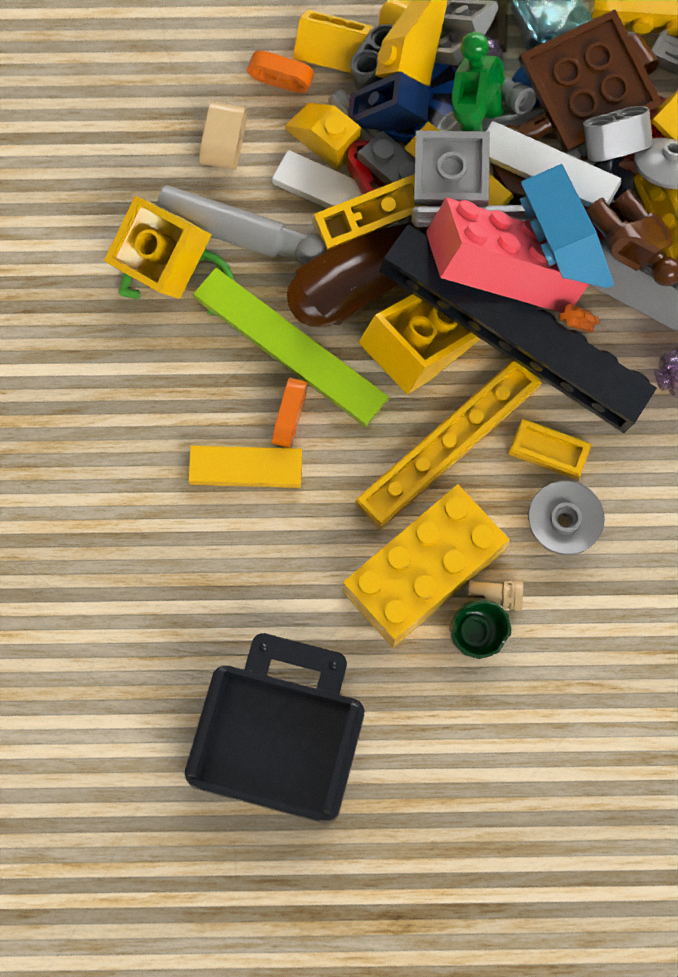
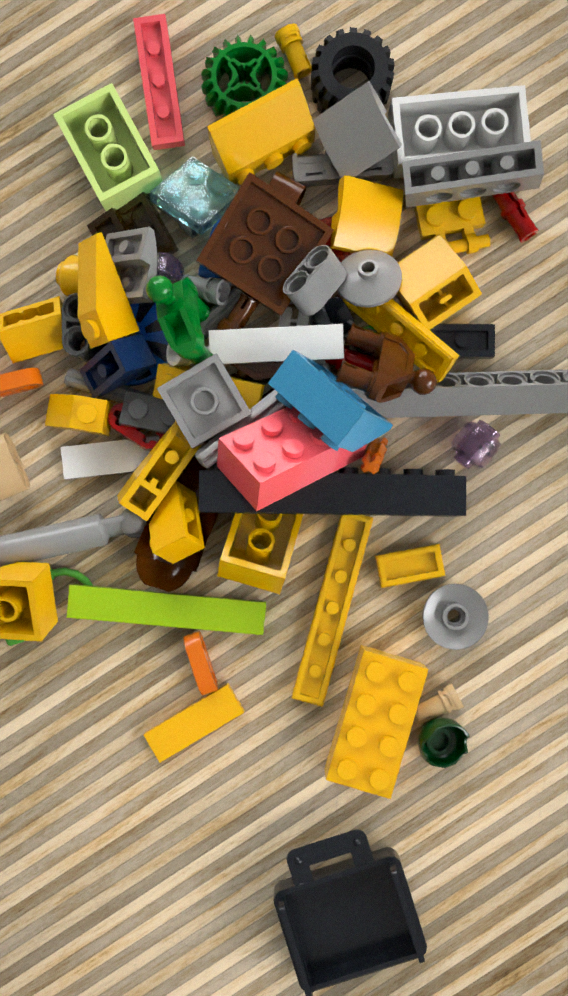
camera: 30 degrees left, 15 degrees up
(350, 271) = (176, 525): none -> yellow slope

